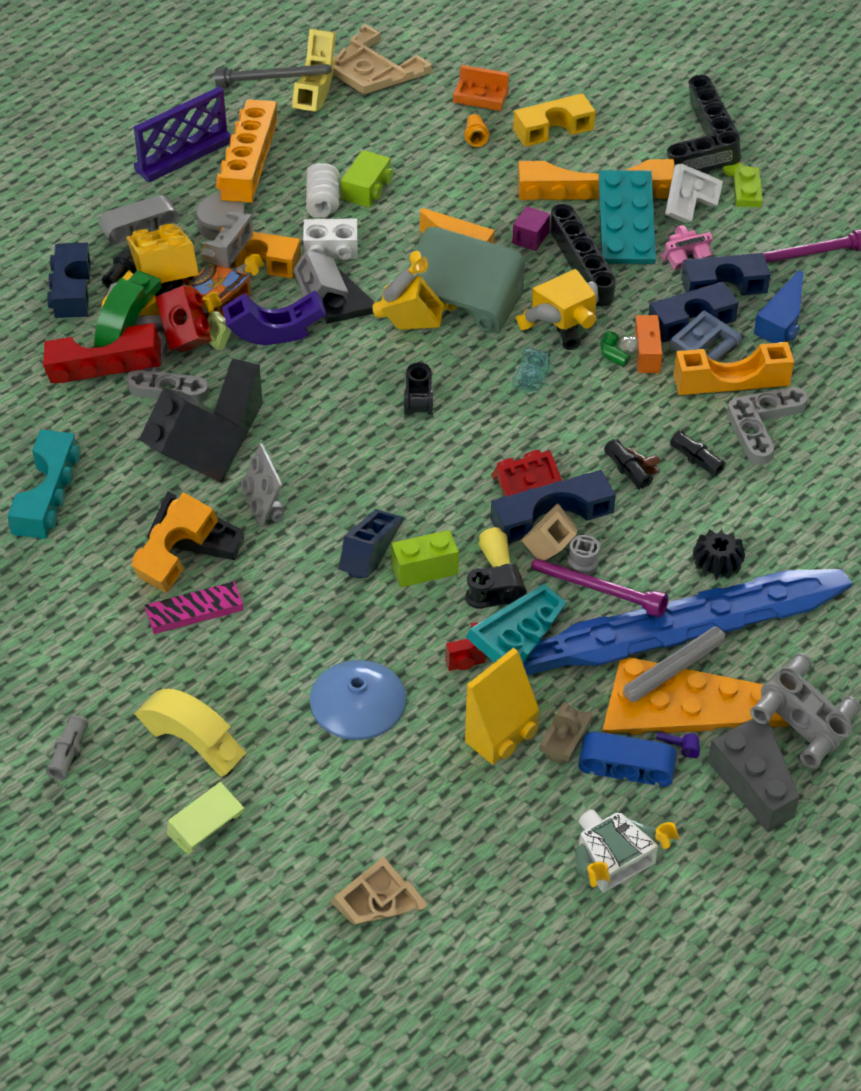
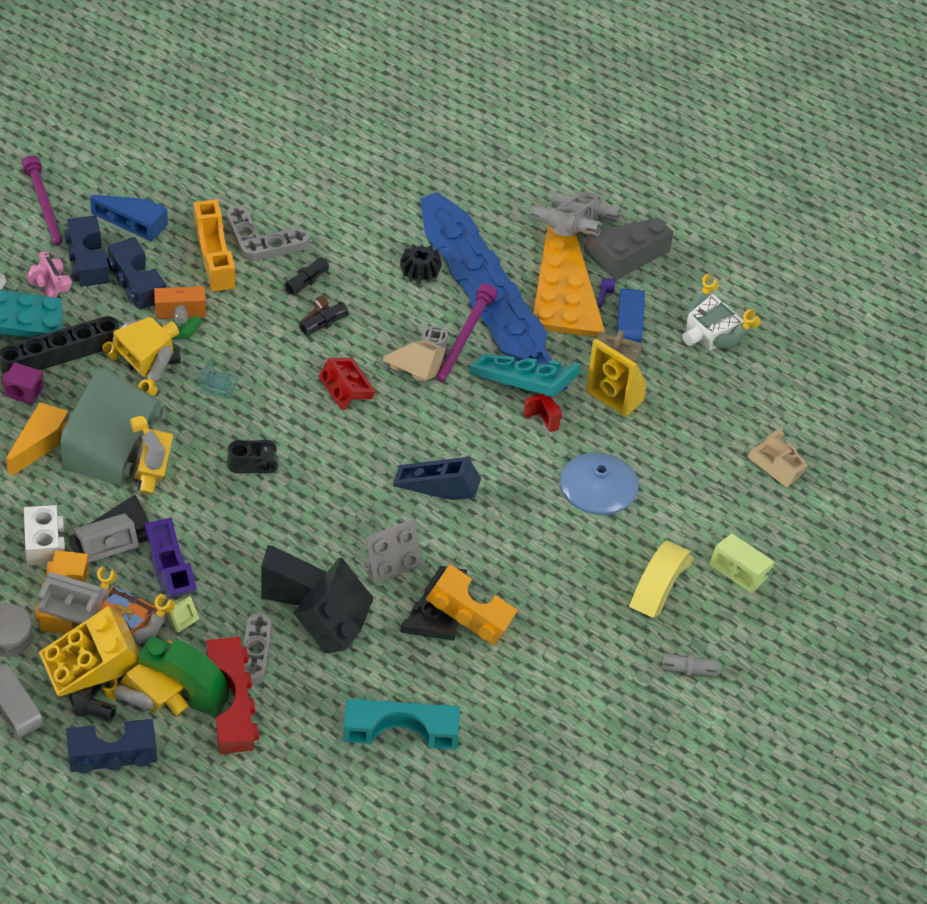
camera: 100 degrees left, 0 degrees up
(172, 308) = (189, 625): red brick -> none
(194, 607) = (525, 598): dark pink tile -> none
(424, 558) = (455, 436): lime brick -> none
(495, 546) = (431, 399): light yellow cone -> none
(497, 584) = (475, 397): black piece -> none
(583, 495) = (395, 384): dark blue arch -> none
(673, 664) = (544, 285): light grey axle -> none
(702, 332) = (172, 266): sand blue plate -> none

